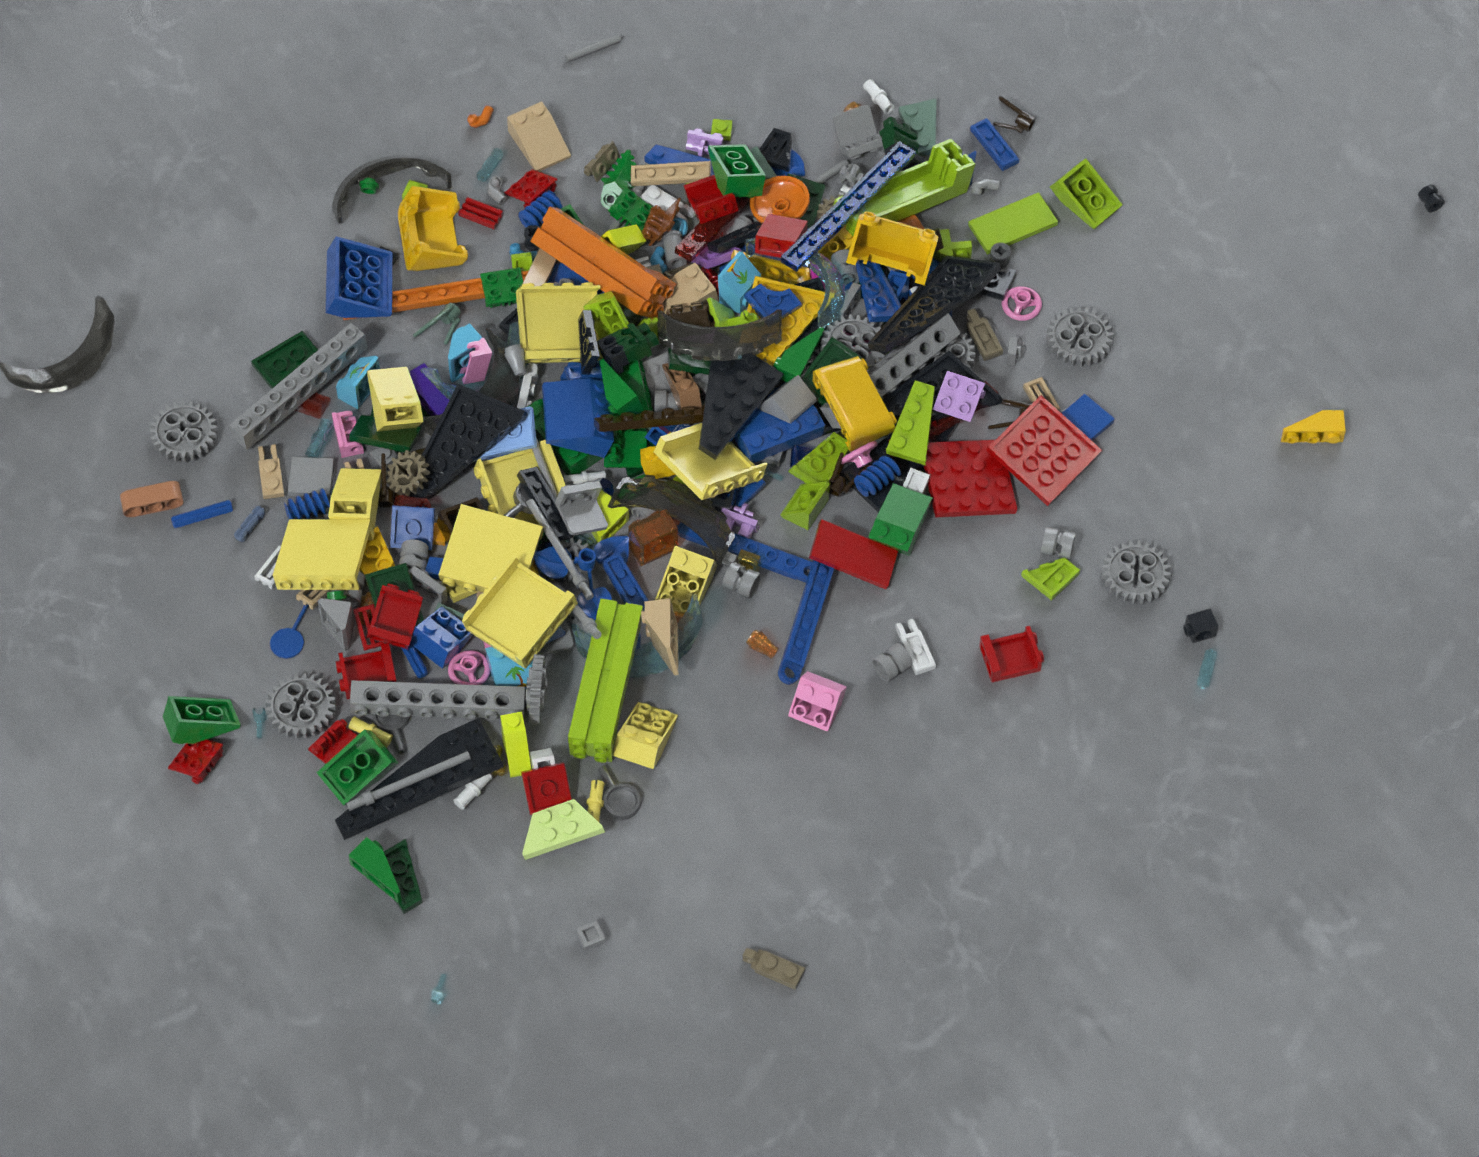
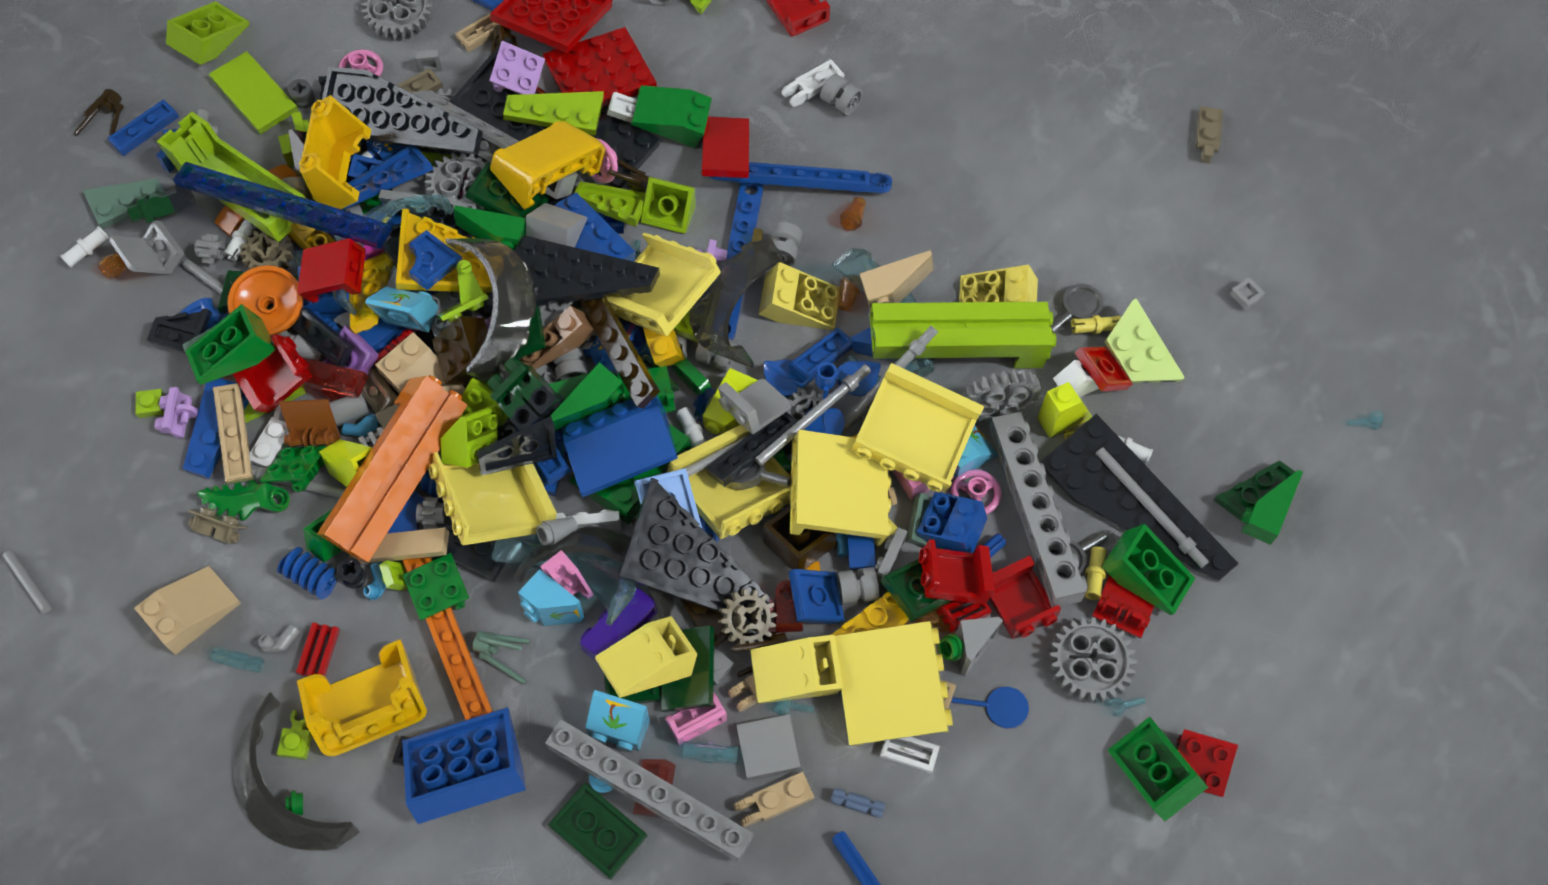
camera: 105 degrees left, 5 degrees up
(307, 505) = (818, 733): blue piece -> none
(477, 121) = (162, 690): orange arm -> none
(531, 186) = (269, 597): red hinge -> none
(653, 537) = (760, 333): clear orange brick -> none
(817, 701) = (905, 150): bright pink slope -> none
(876, 475) = (625, 139): blue piece -> none

